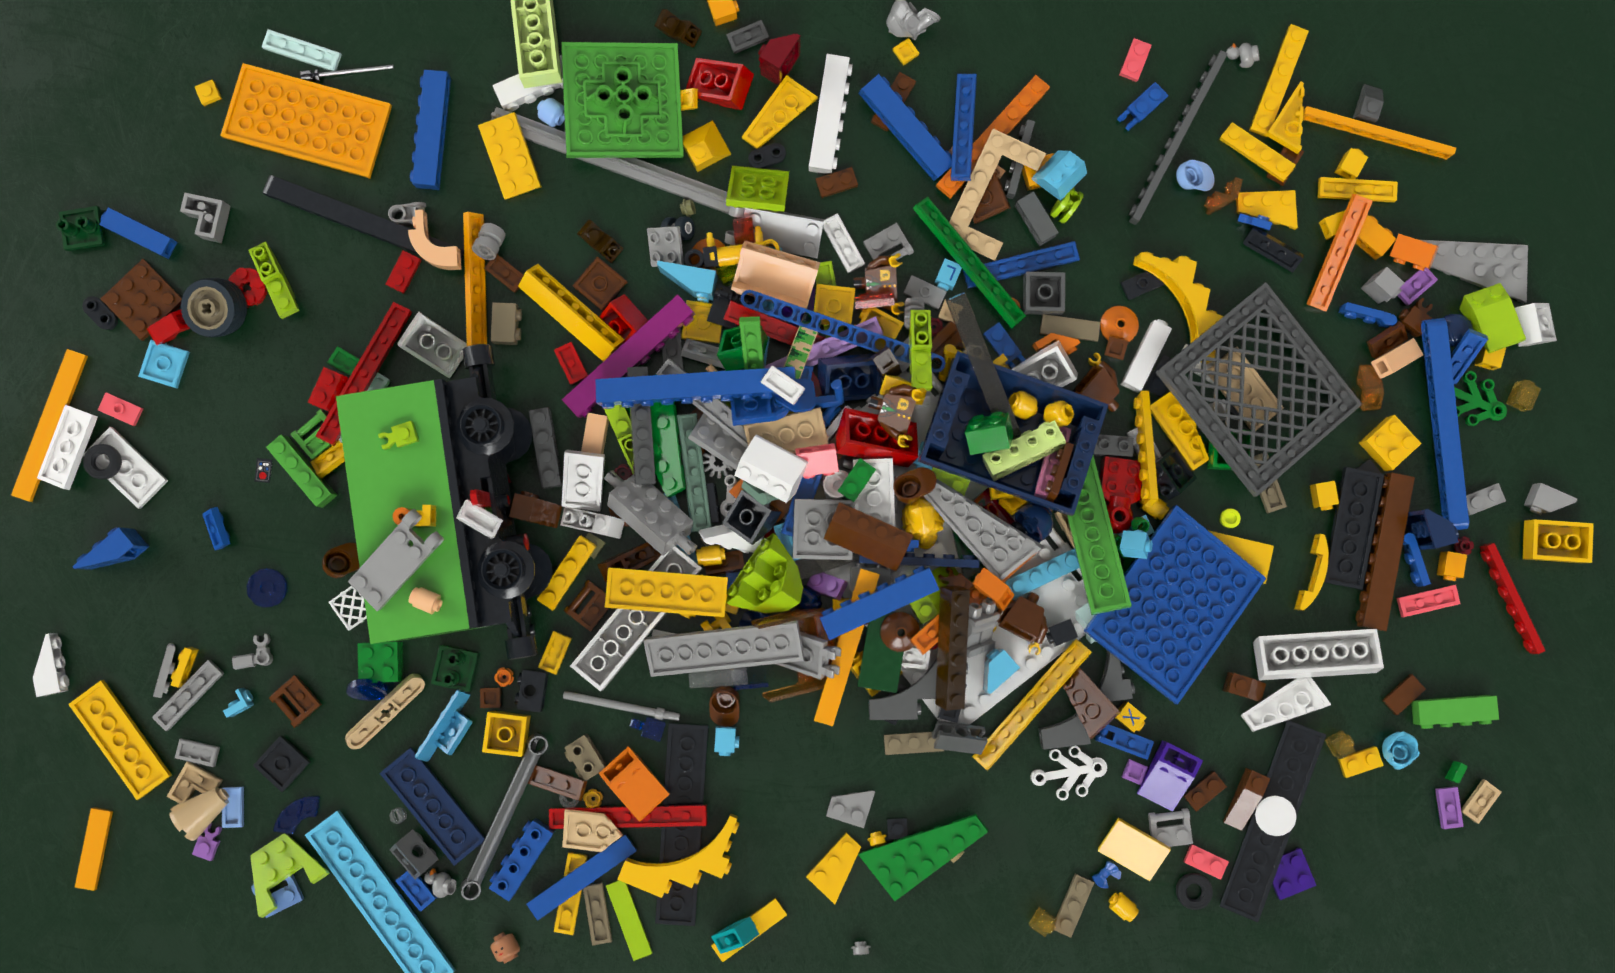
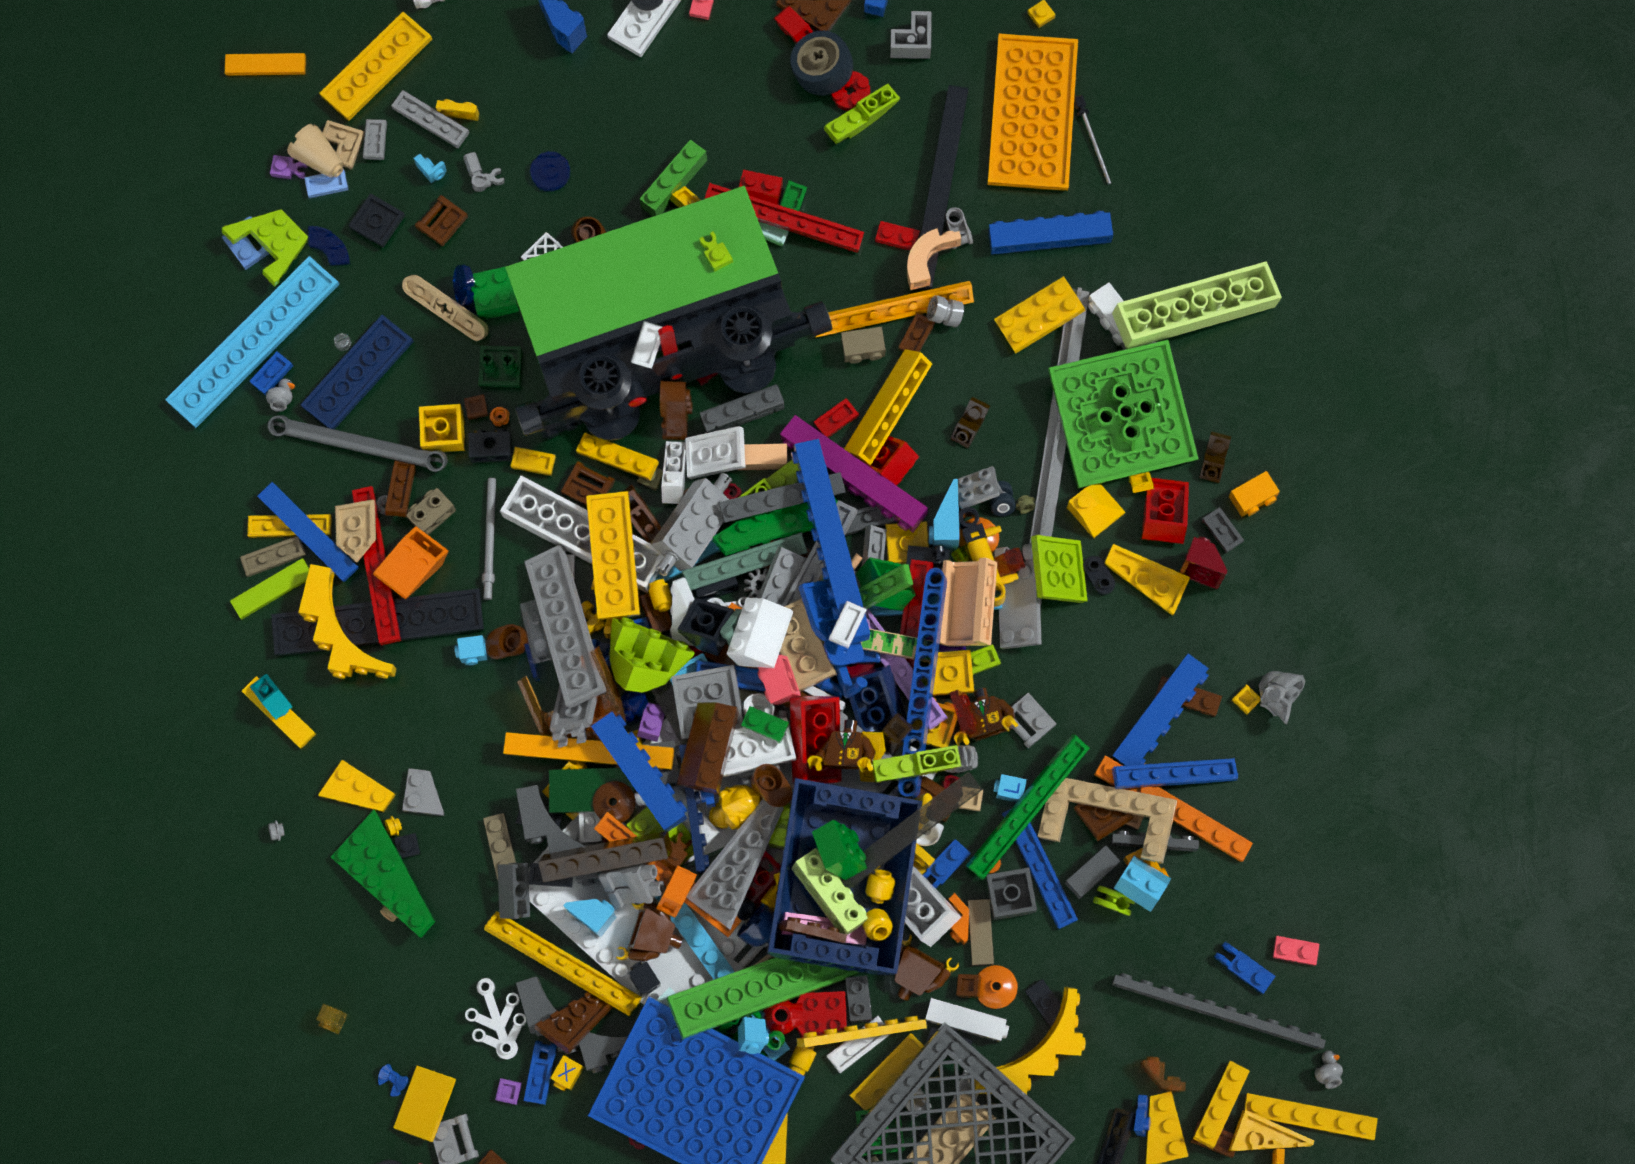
camera: 85 degrees right, 10 degrees down
(164, 364) = (756, 29): medium azure tile -> none
(166, 668) = (452, 93): light grey hinge -> none
(216, 529) = (595, 114): blue plate -> none
(263, 470) = (668, 144): black sticker -> none
(301, 50) = (1105, 93): light aqua tile -> none
(312, 445) = (701, 182): bright green plate -> none
(394, 562) = (588, 271): light grey hinge -> none
(403, 852) = (295, 368): dark grey brick -> none
(425, 600) = (556, 308): light nougat brick -> none
(428, 515) = (636, 275): yellow leg -> none
(433, 345) = (827, 277): white slope -> none
(448, 729) = (437, 371): dark azure bracket -> none
(505, 947) = (225, 470): nougat head -> none
(521, 859) = (316, 469): blue brick -> none
(551, 112) = (1095, 345): light blue head -> none
(593, 793) = (389, 523): yellow plate -> none
(599, 283) = (925, 431): reddish brown plate -> none
(651, 728) = (471, 573): clear blue plate -> none
(829, 114) = (1158, 630): white brick -> none
(836, 182) = (1086, 653): reddish brown plate -> none
(843, 243) = (1022, 672): white tile -> none
(931, 294) = (988, 767): light grey plate -> none
(1073, 905) = (354, 1049): dark tan plate -> none
(1123, 906) = (361, 1103): yellow brick -> none
(1169, 775) = (510, 1127): slope -> none
(1173, 473) = (841, 1070): black plate -> none
(1195, 175) = (1179, 1040): light blue cap -> none
(1230, 518) = (805, 1148): neon yellow tile -> none

